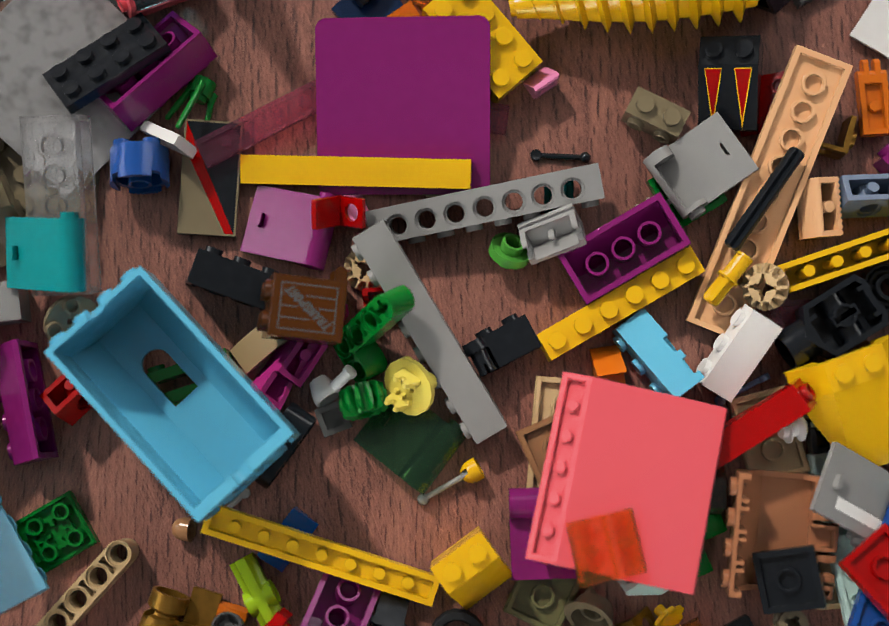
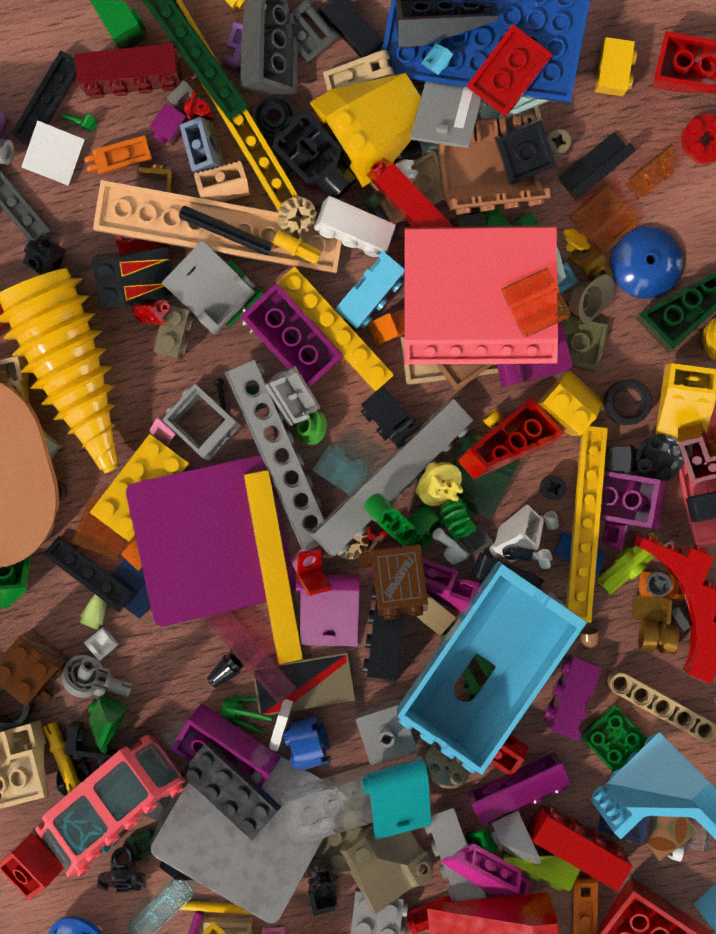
camera: 110 degrees left, 5 degrees up
(117, 491) = (572, 696): none -> magenta wedge
(129, 249) = (383, 734): none -> light grey brick
(249, 93) = (225, 670): none -> black cone
(300, 587) = (614, 535): none -> magenta slope
(324, 471) = (521, 537): none -> white torso
(378, 517) = (548, 488): none -> black wheel
(443, 486) = (515, 437): none -> red wedge
(452, 274) = (341, 470): none -> clear light blue brick
(521, 140) = (220, 435): none -> light grey window
(618, 596) = (569, 281): none -> medium azure tile
(685, 94) = (151, 312): none -> red hinge
(764, 383) = (374, 201): none -> tile

